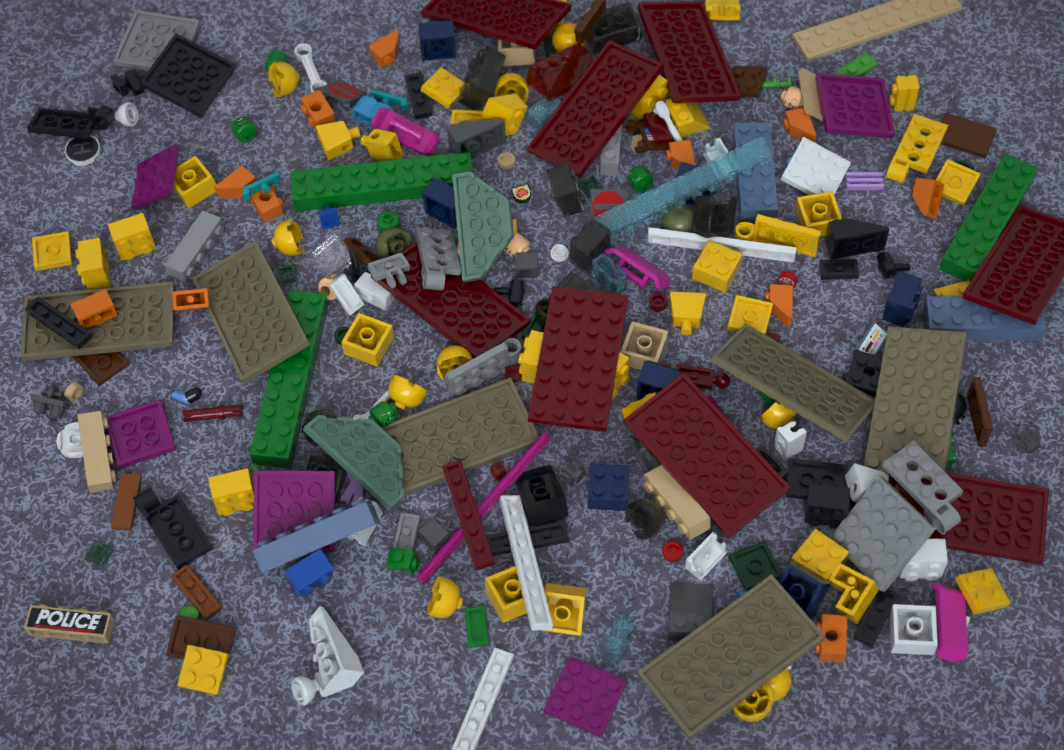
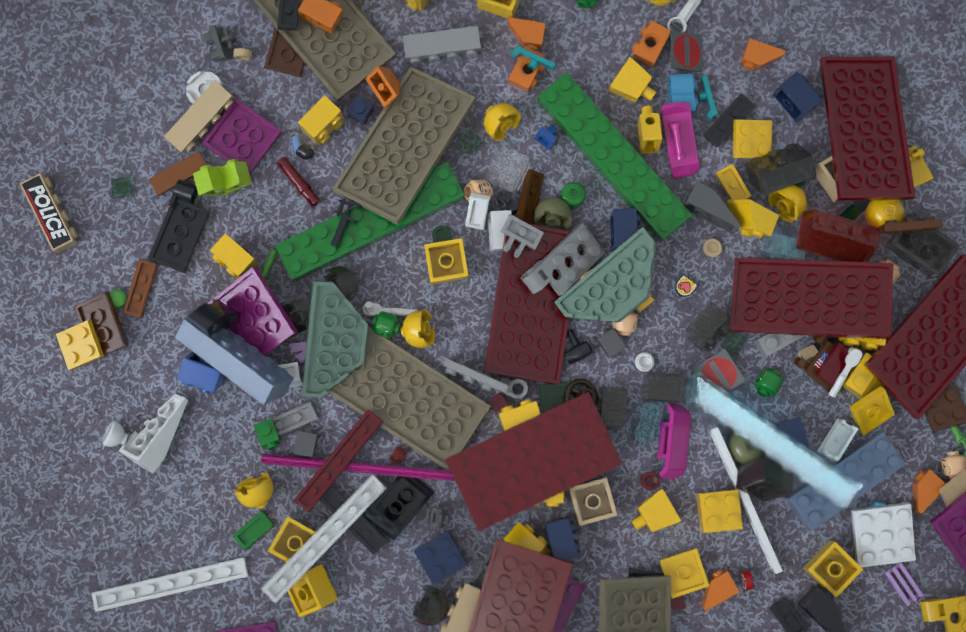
camera: 50 degrees right, 25 degrees up
(164, 460) = (222, 179): none -> lime brick
(179, 360) = (321, 121): none -> yellow brick
(195, 332) = (360, 110): none -> dark blue brick
(271, 525) = (213, 317): none -> black brick
(273, 384) = (343, 221): none -> black piece
(451, 358) = (473, 350): yellow cylinder -> none
(680, 152) = (818, 405): orange slope -> none
(703, 377) = (592, 554): dark red plate -> none
(712, 123) = (872, 410): none -> yellow plate
(779, 232) = (787, 542): yellow hinge -> none

